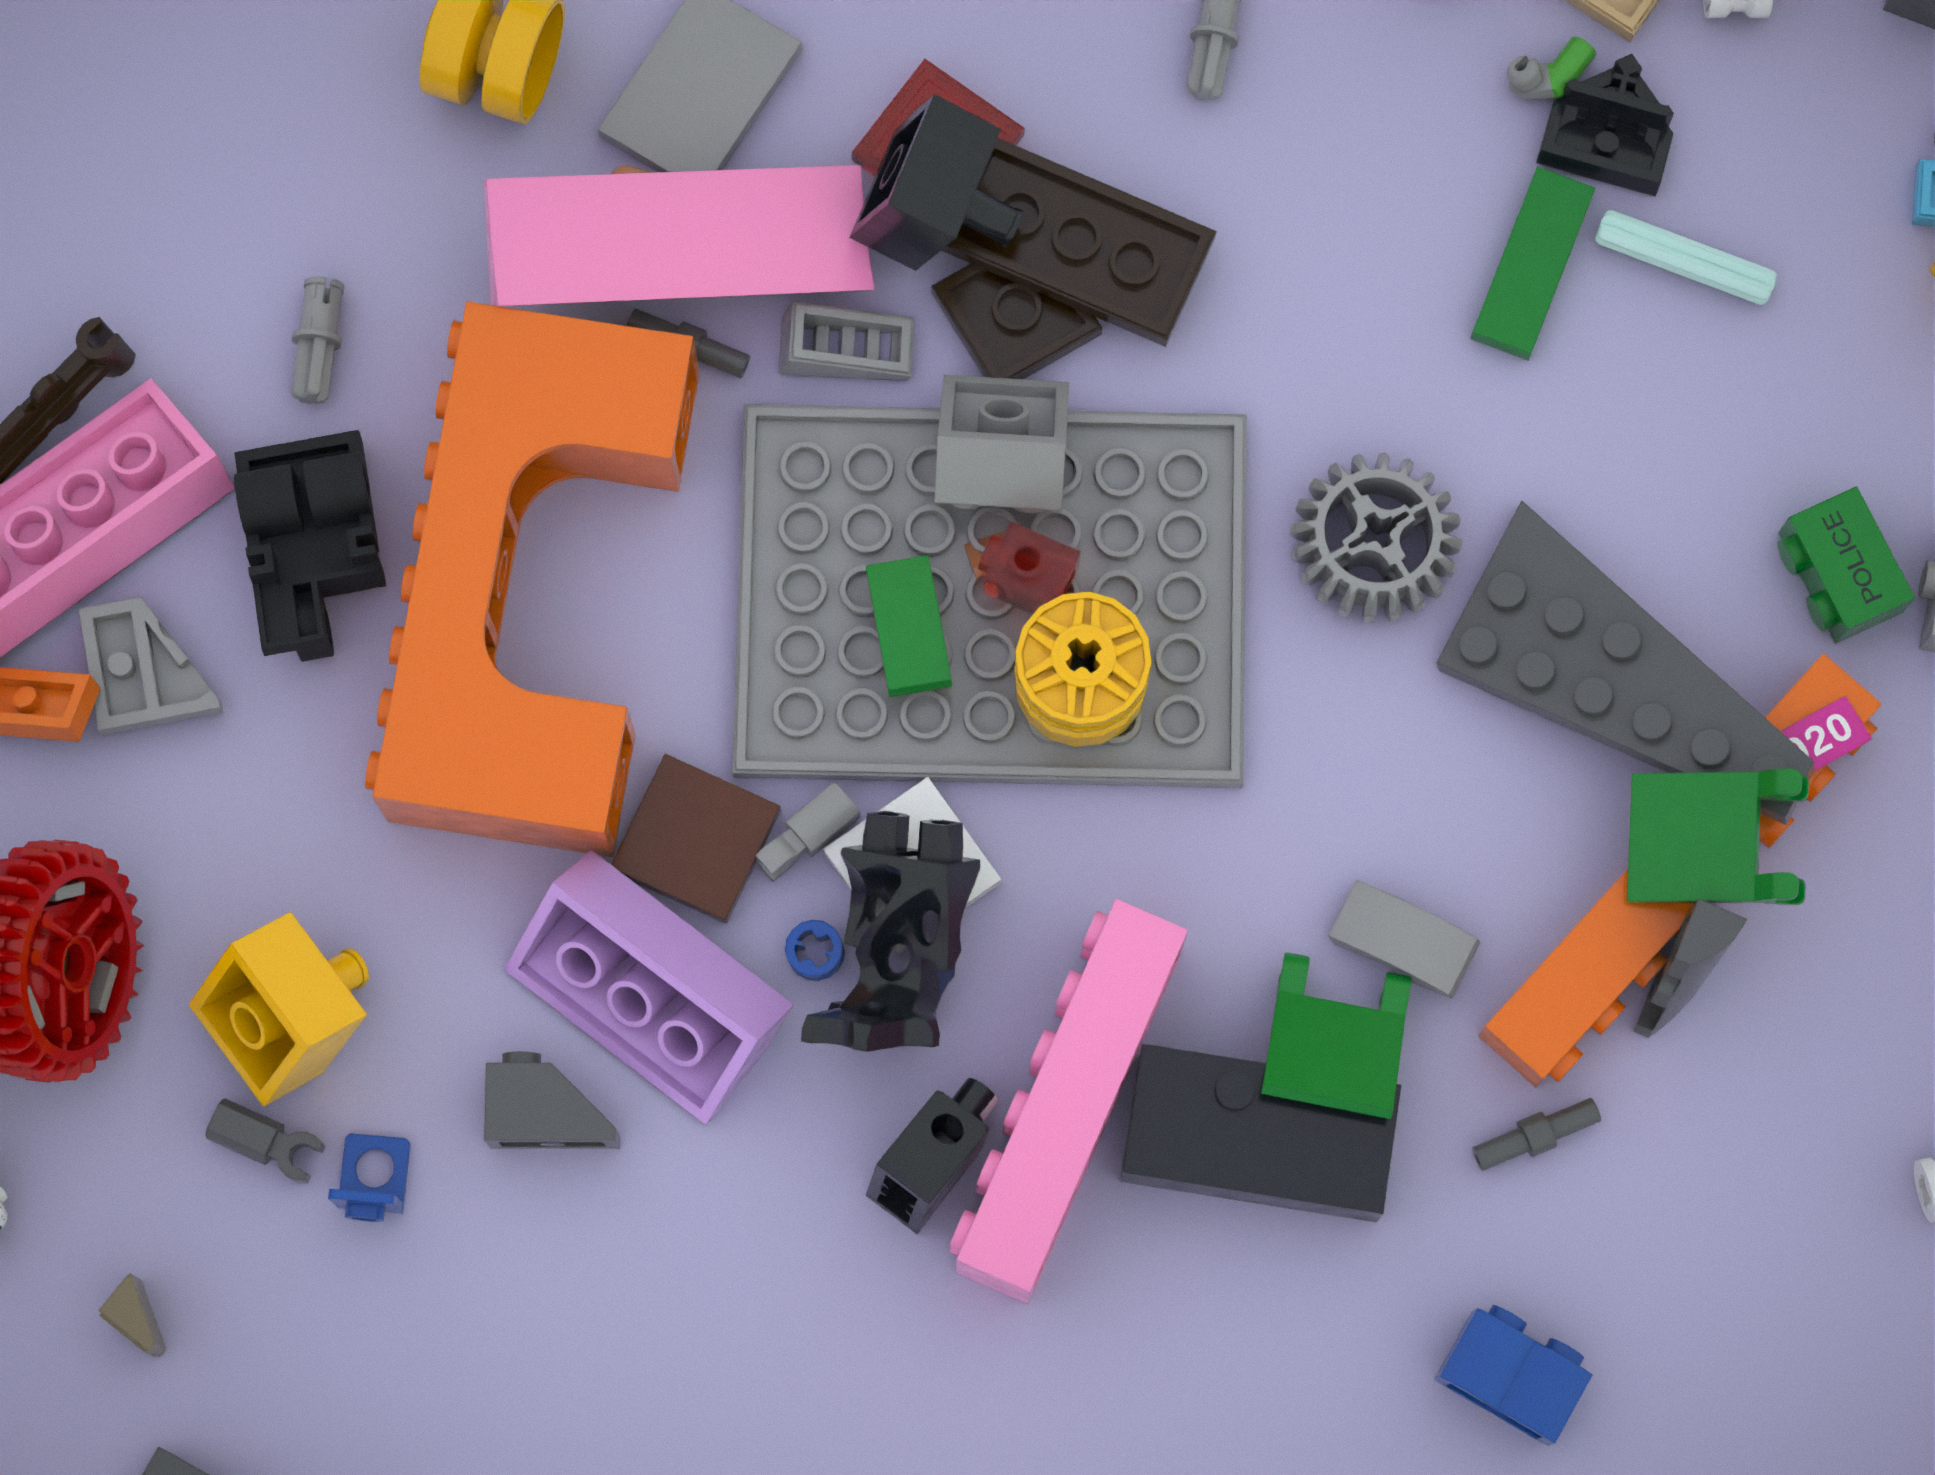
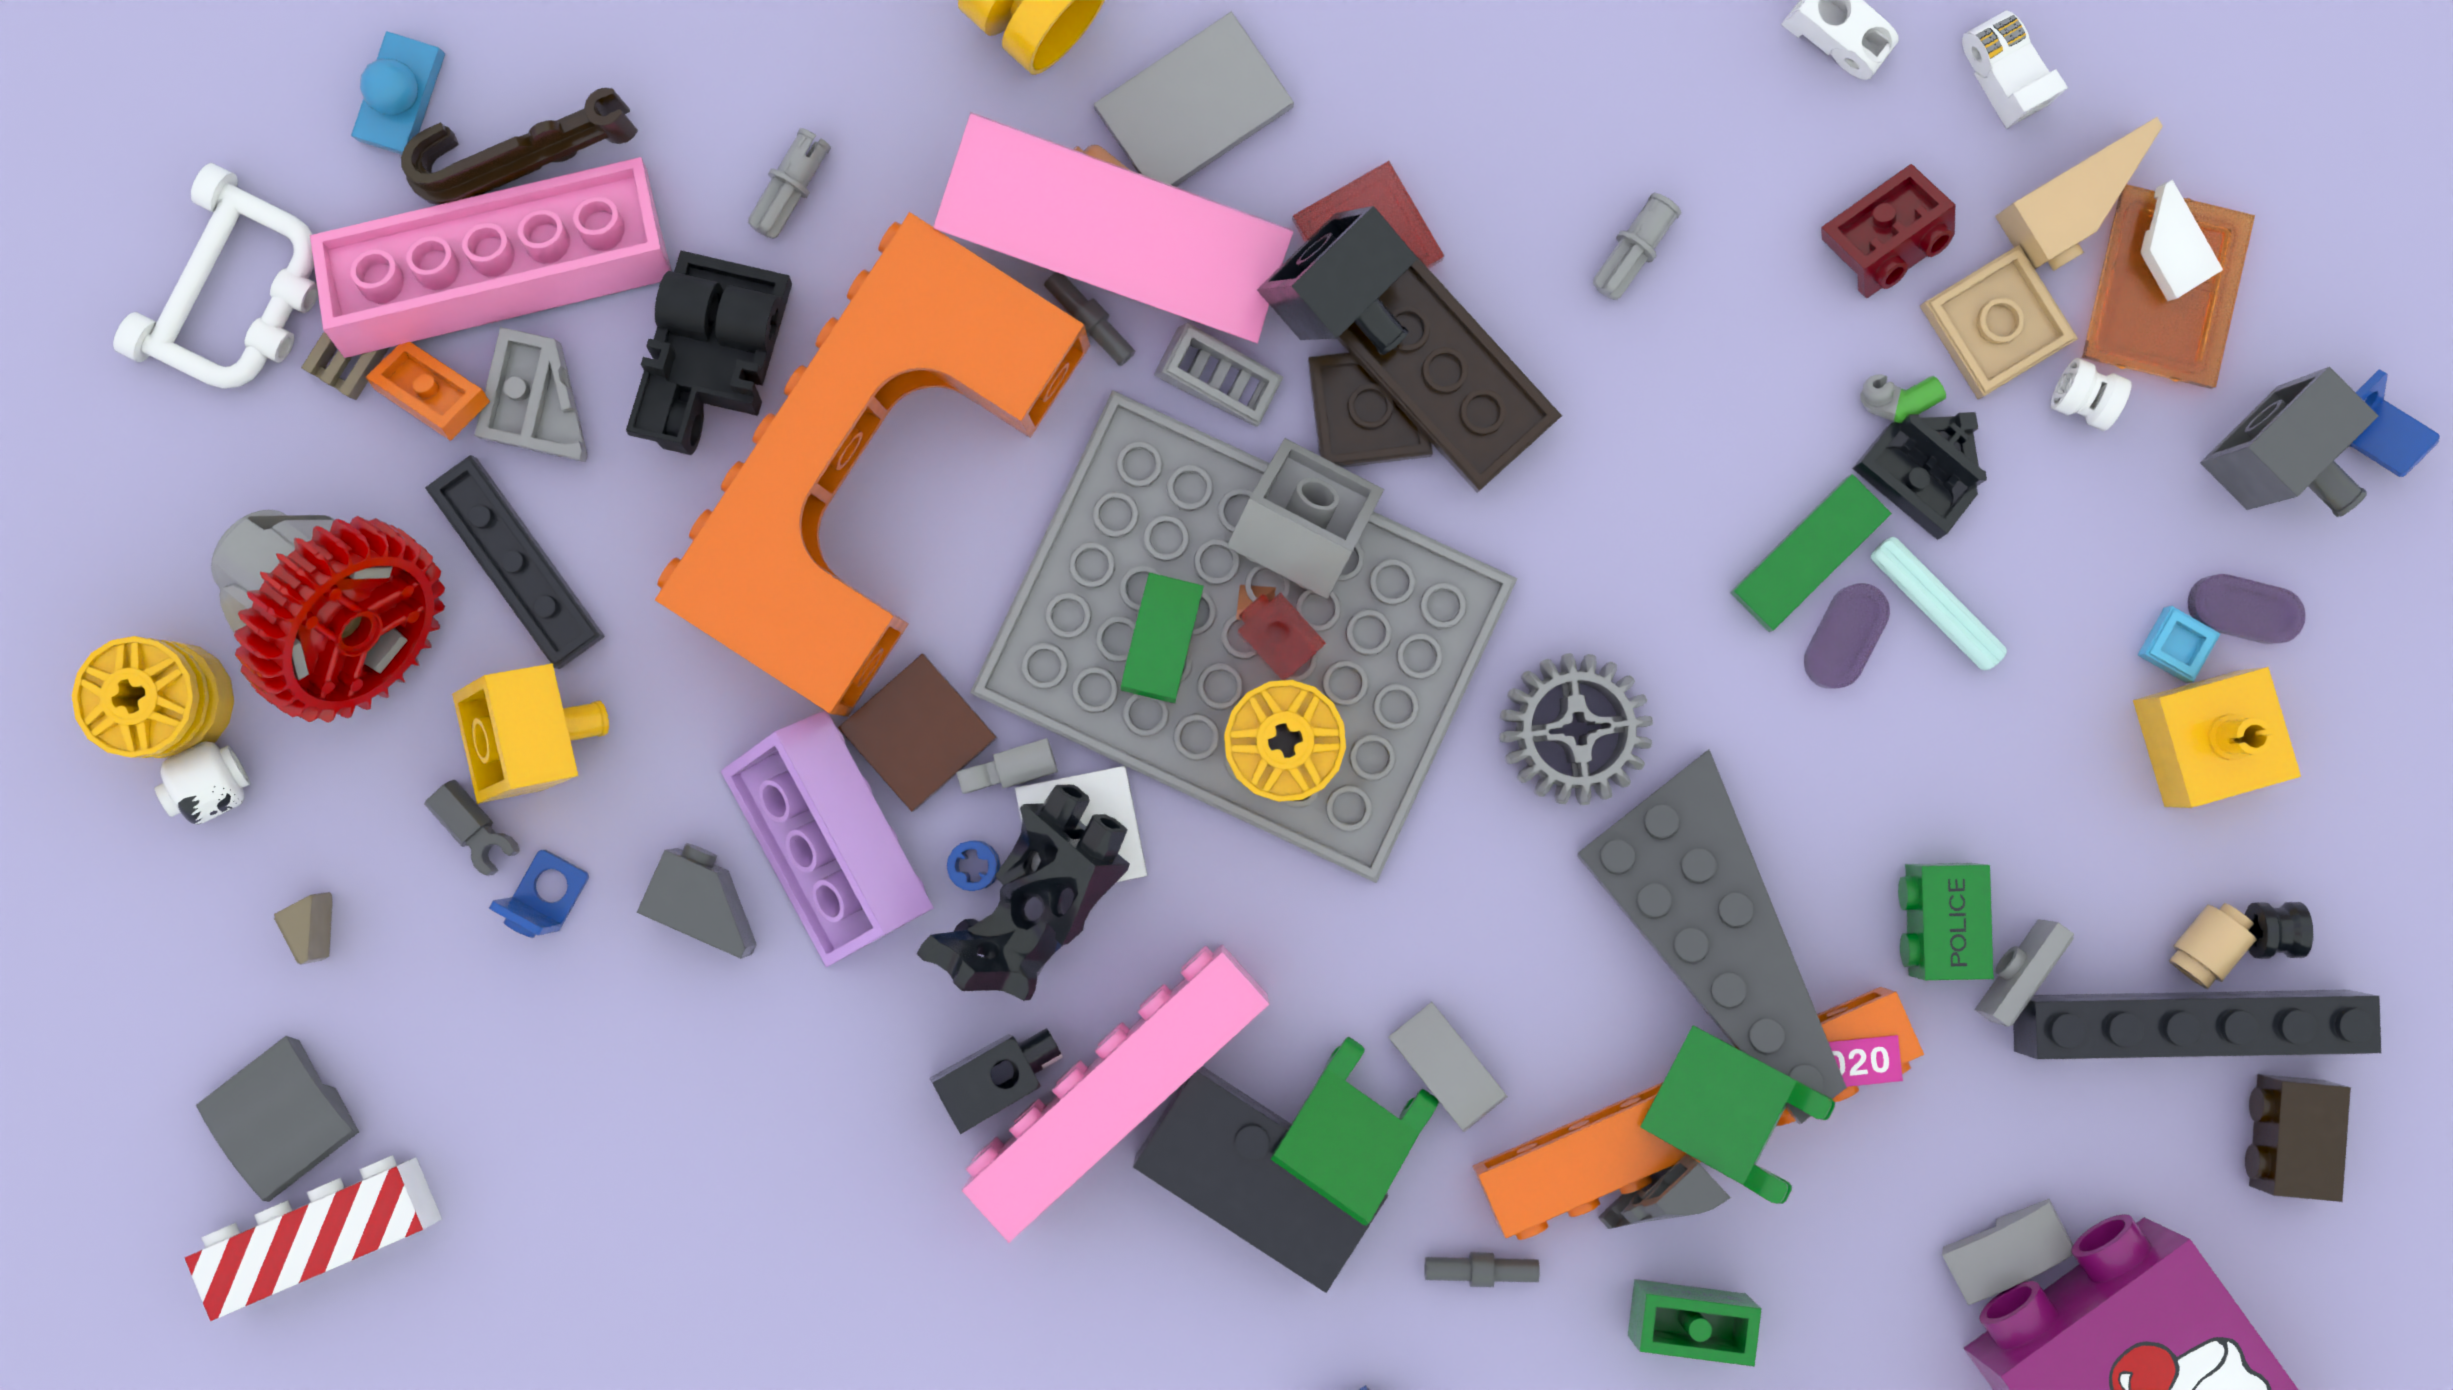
camera: 20 degrees right, 10 degrees up
(190, 845) = (514, 562): none -> black tile
(1608, 330) = (1846, 636): none -> clear purple tile
(1778, 1082) = (1694, 1322): none -> green brick

